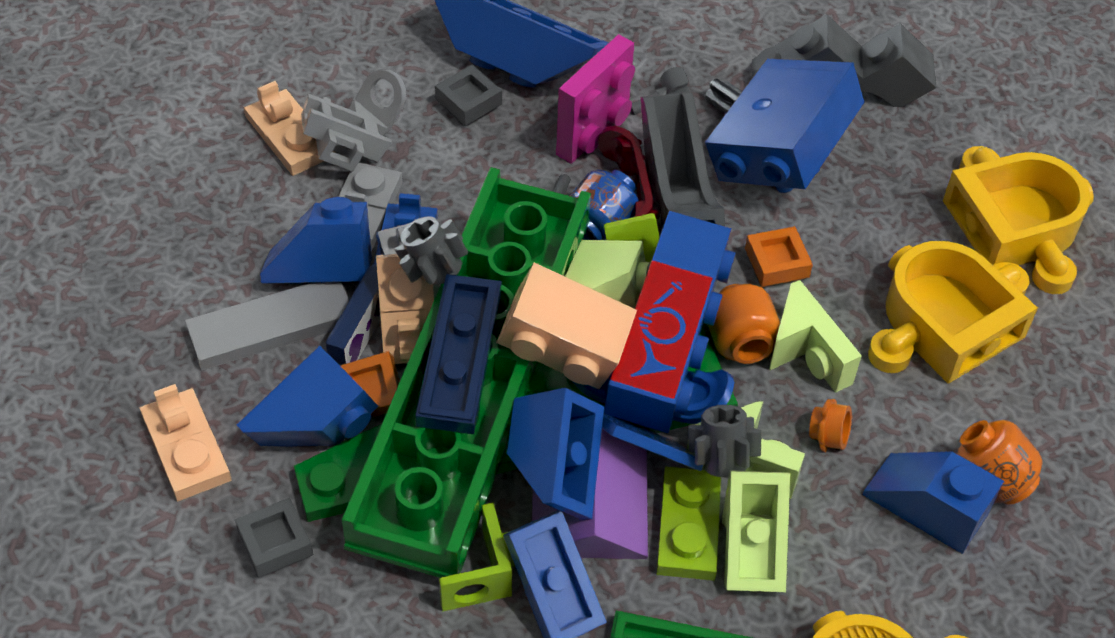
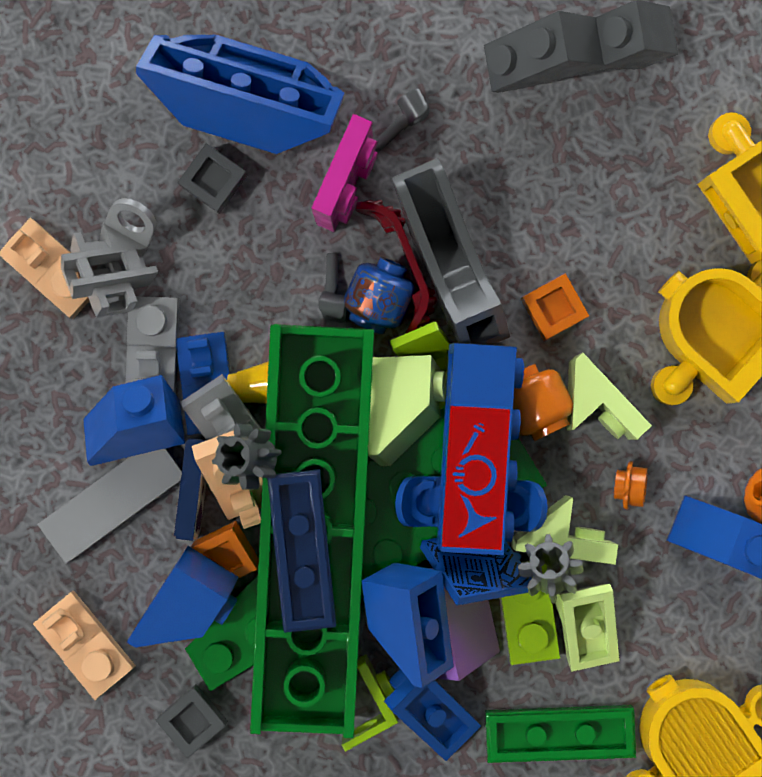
camera: 10 degrees left, 35 degrees up
(566, 326) = (390, 506): light nougat brick -> none
(782, 122) = (533, 156): blue piece -> none

